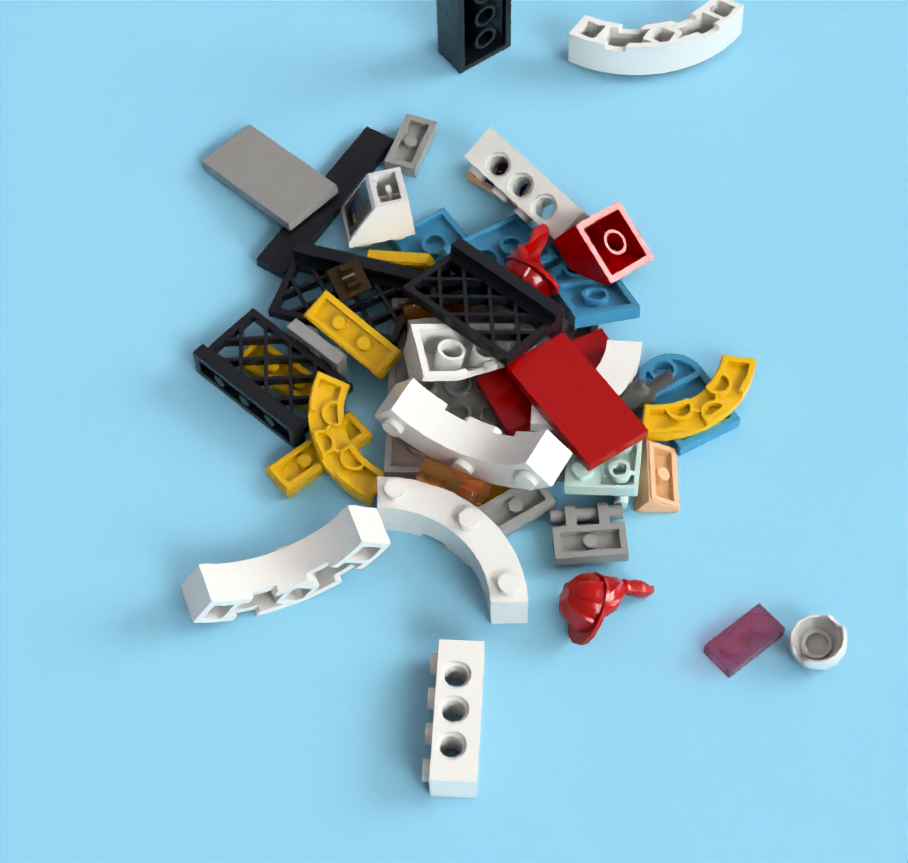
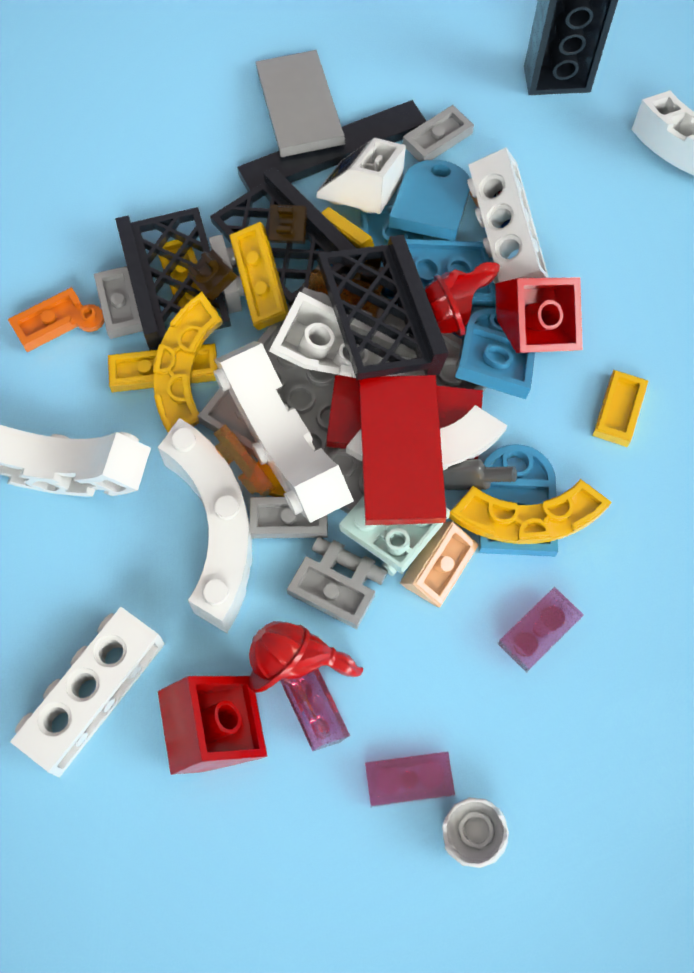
camera: 30 degrees right, 10 degrees up
(194, 465) = (54, 319): none -> orange hinge
(241, 421) = (118, 302): none -> light grey plate
(315, 353) = (212, 274): none -> dark brown tile
(447, 204) = (430, 202): none -> dark azure tile
(567, 686) = (210, 723): none -> red slope
(649, 636) = (315, 710): none -> clear pink plate
(712, 288) = (620, 408): none -> yellow tile
(766, 481) = (540, 629): none -> clear pink plate

